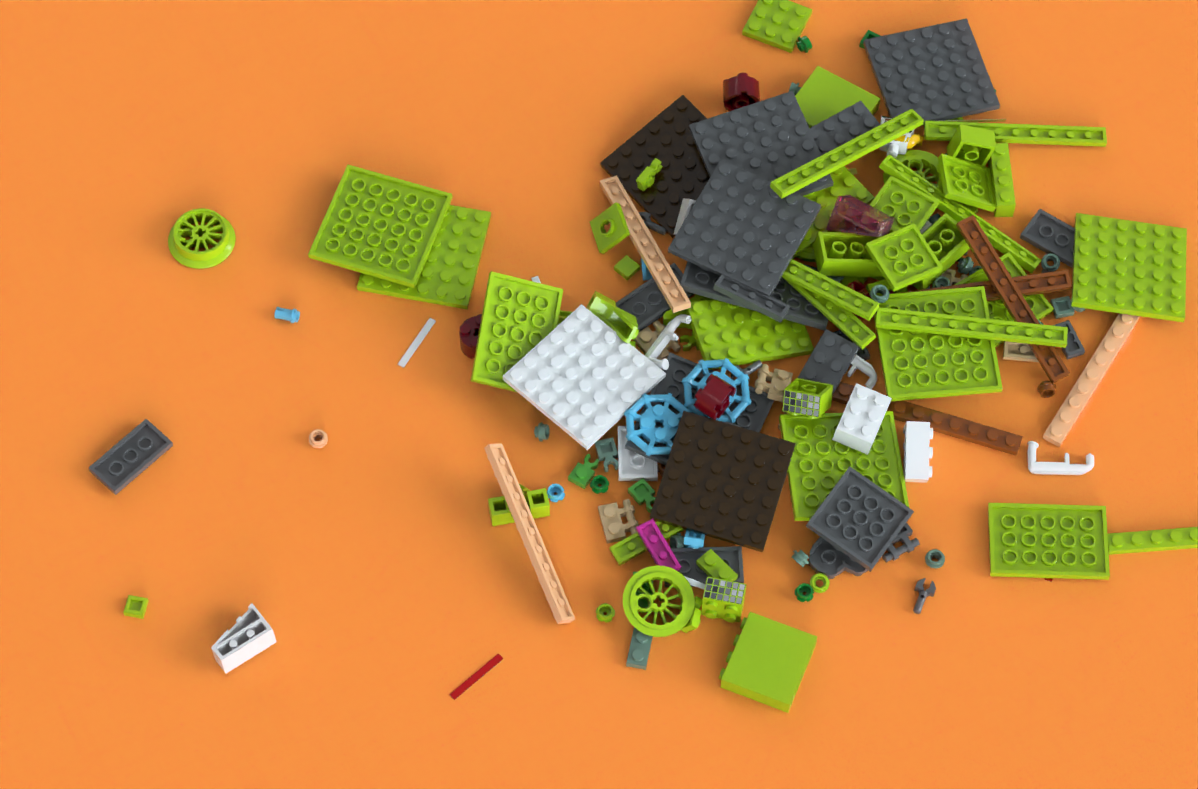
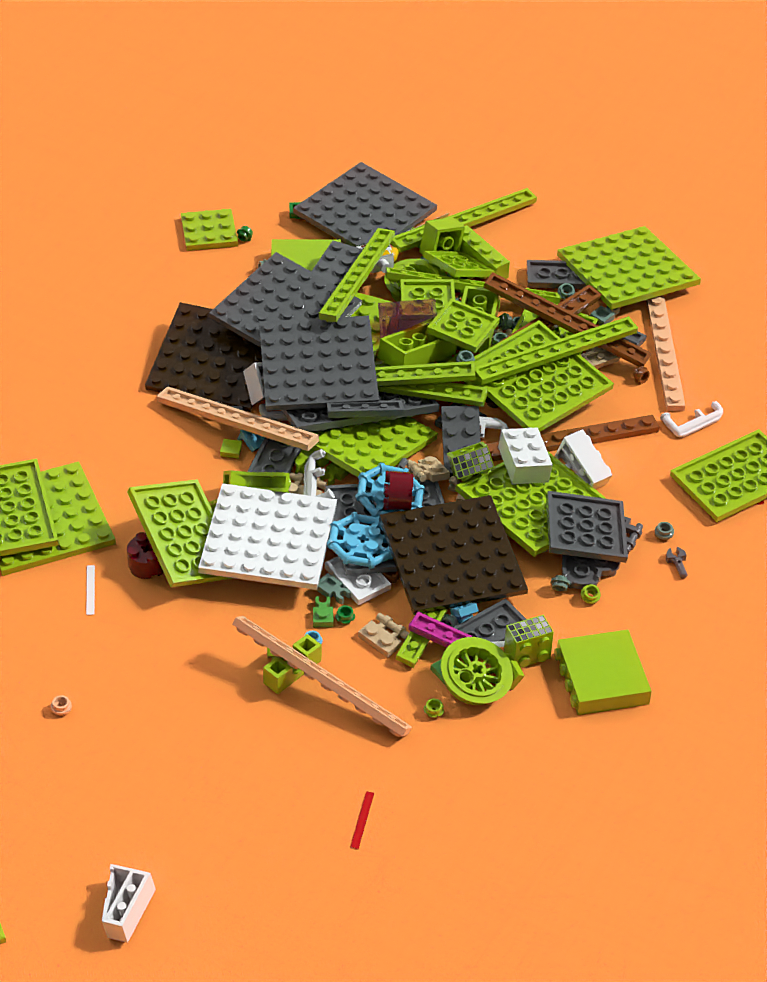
camera: 35 degrees left, 15 degrees down
(542, 431) = (261, 600): sand green plate -> none
(617, 231) = (205, 425): lime piece -> none
(639, 650) = (486, 721): sand green plate -> none
(642, 493) = (389, 602): bright green plate -> none
(647, 177) = (199, 371): lime plate -> none
(715, 566) = (497, 622): lime plate -> none
(740, 91) = (223, 281): dark red brick -> none
(804, 588) = (584, 607): green plate -> none

